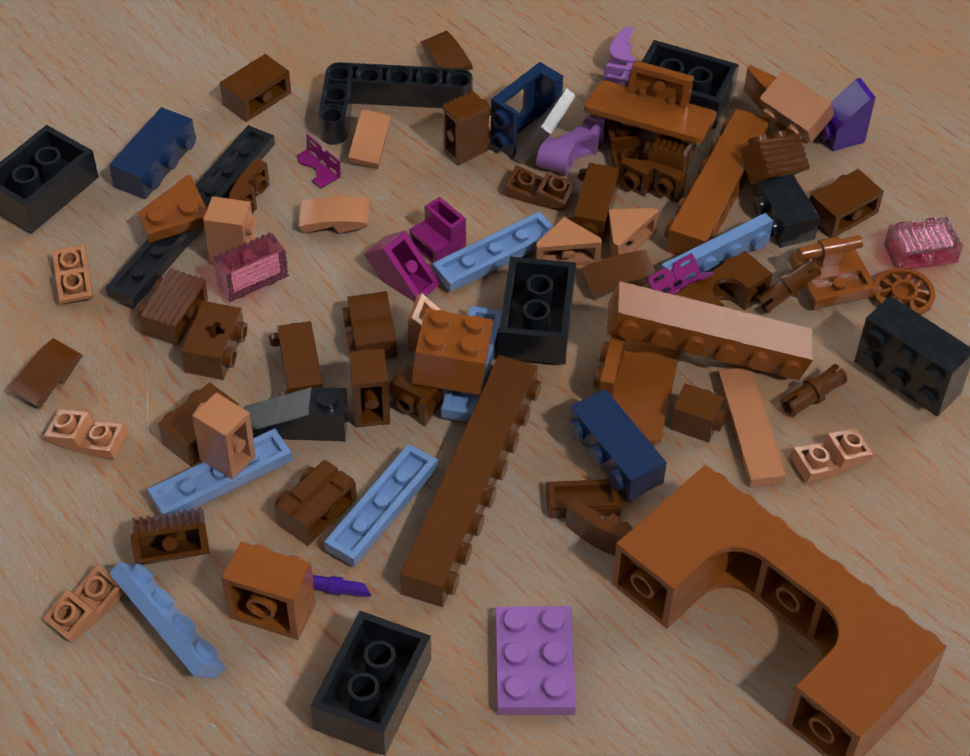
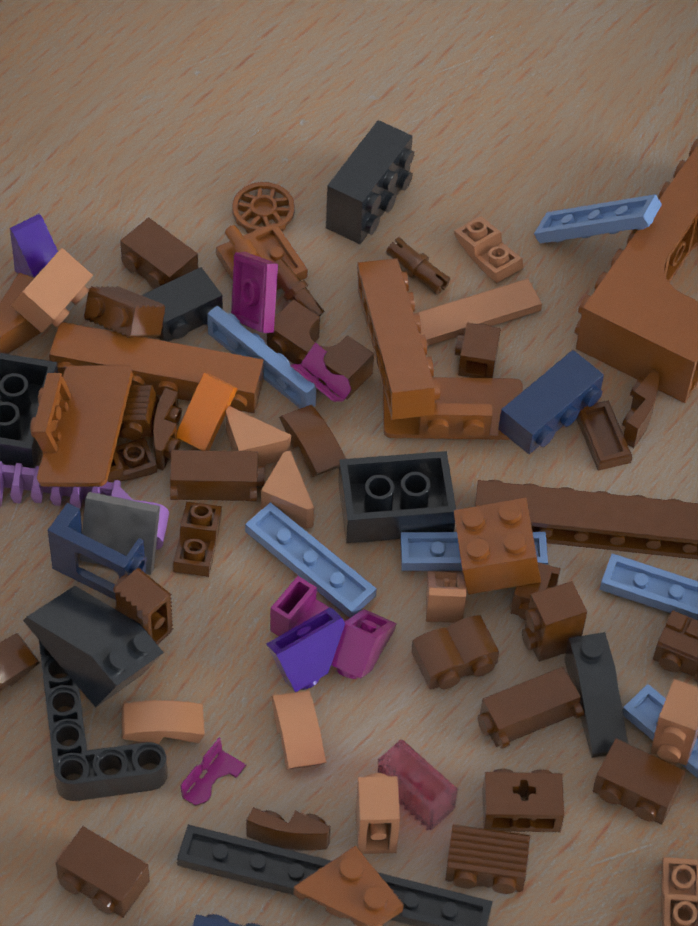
camera: 105 degrees left, 5 degrees up
(395, 212) = (308, 649): none -> dark purple slope
(429, 85) = (93, 643): none -> black slope
(664, 200) = (206, 412): none -> orange tile
(777, 237) = (254, 291): none -> magenta tile
(833, 524) = (598, 219): none -> medium blue plate
(923, 243) = (201, 191): clear pink brick -> none

